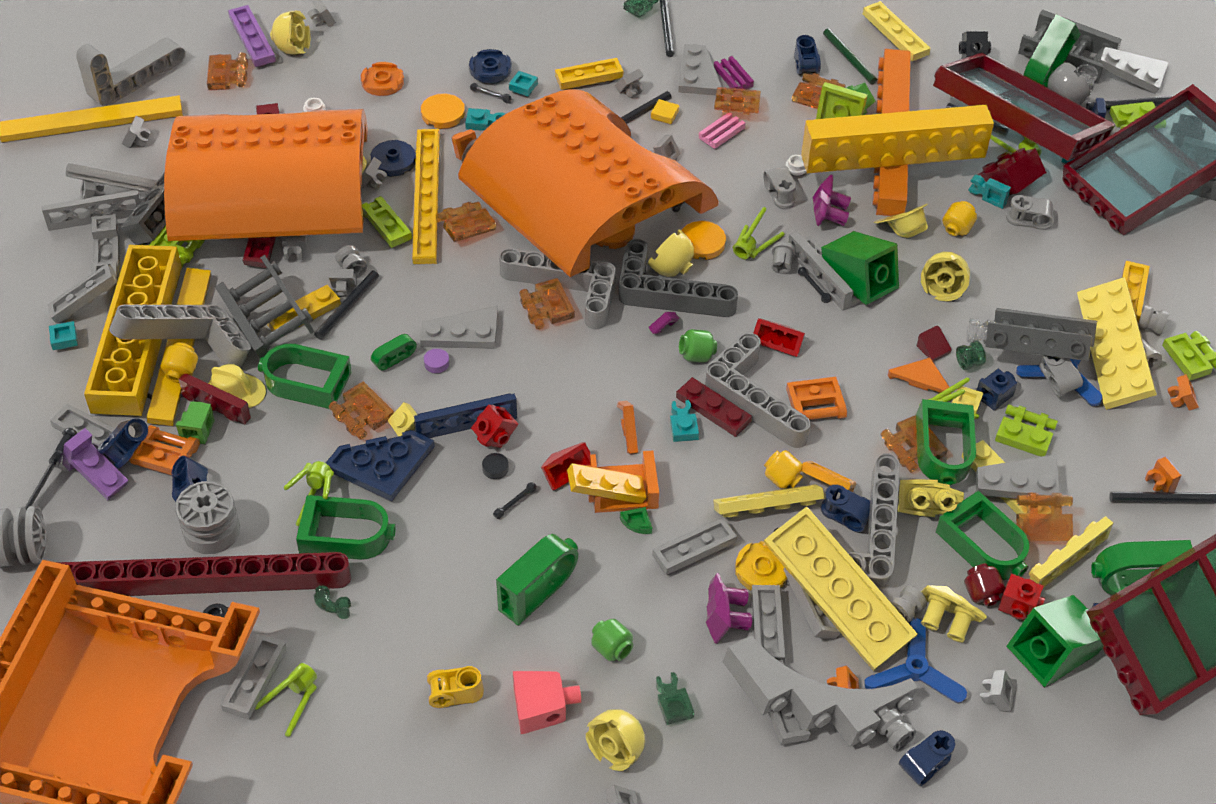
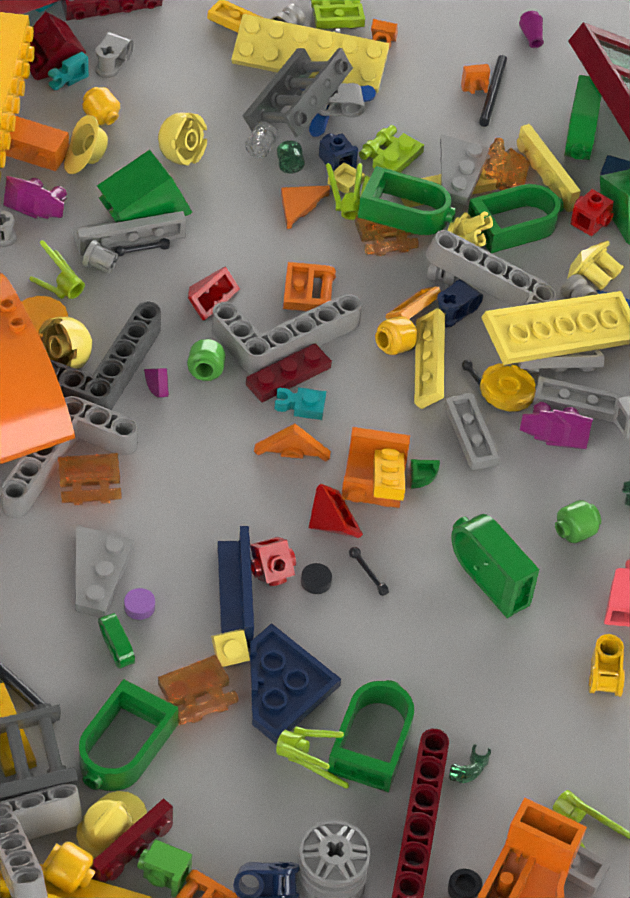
camera: 80 degrees left, 0 degrees up
(933, 343) = (262, 180): dark red slope -> none
(984, 584) = (569, 233): dark red head -> none

